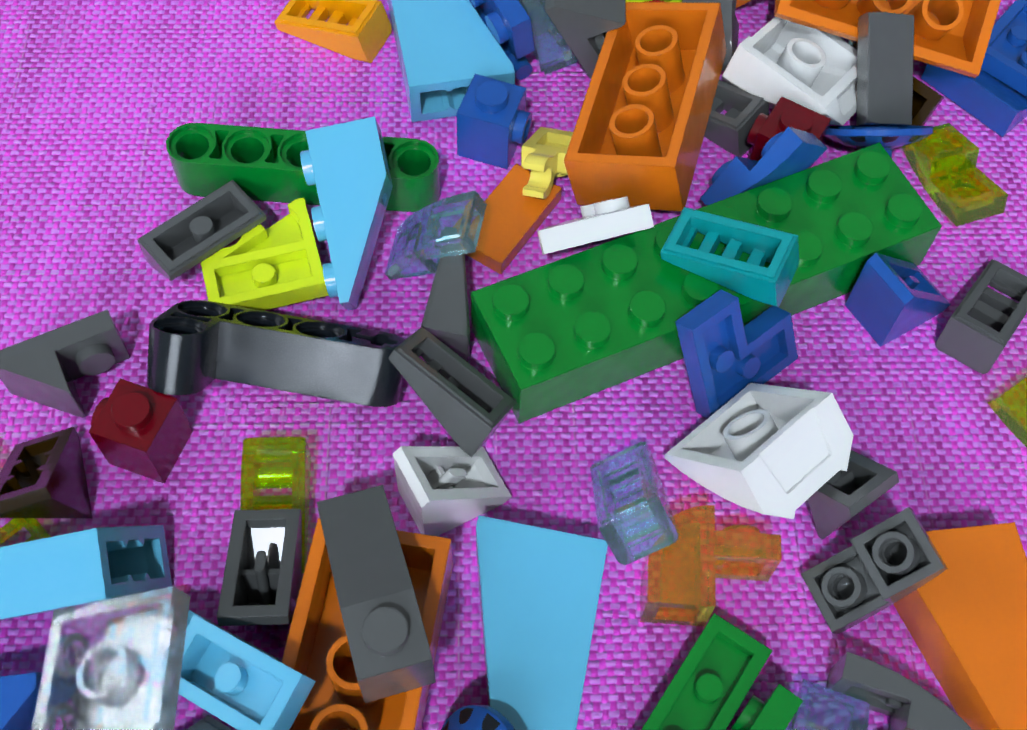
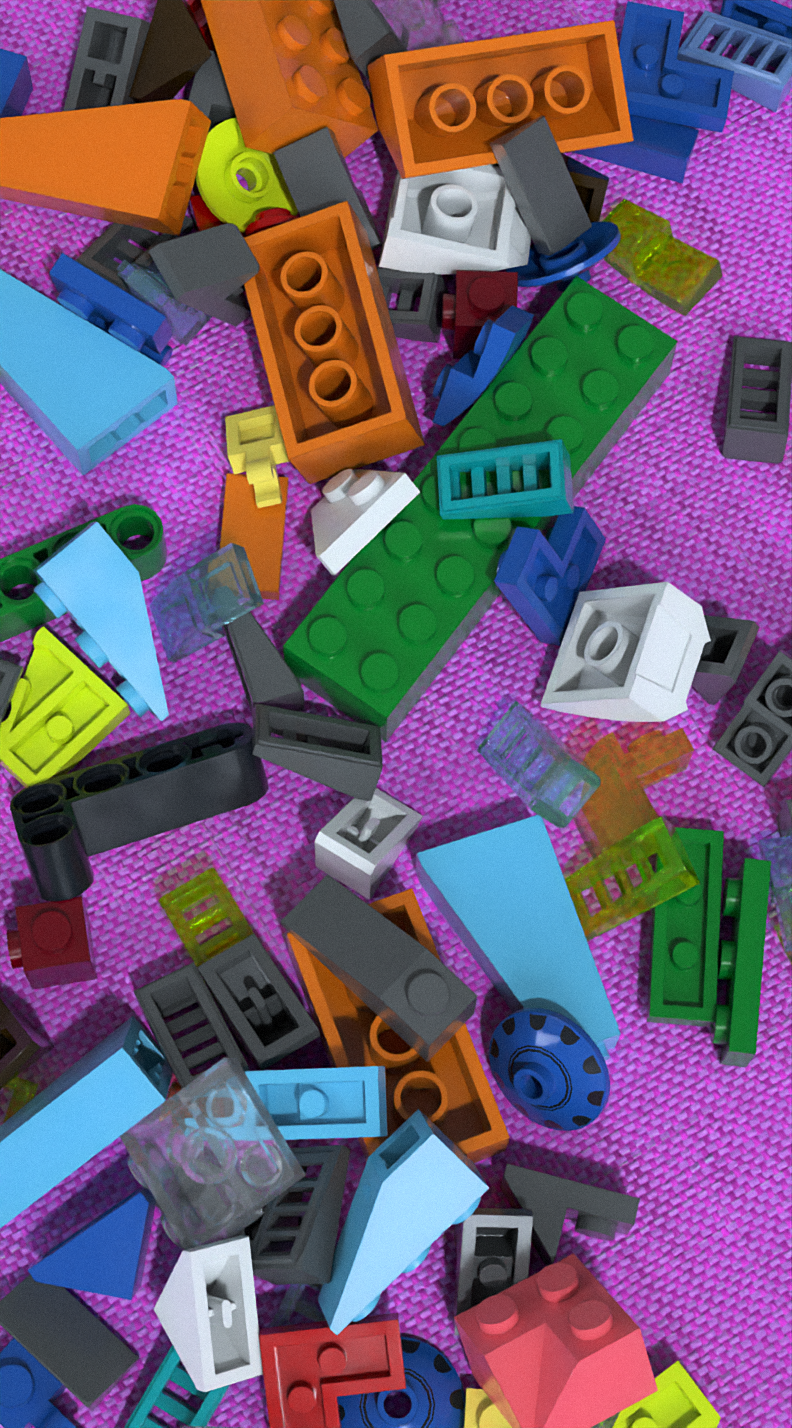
camera: 30 degrees left, 10 degrees up
(199, 525) = (173, 994): none -> dark grey slope
(492, 121) = (180, 440): blue brick -> none
(679, 665) = (676, 877): none -> clear neon green slope
(893, 298) = (666, 429): blue slope -> none

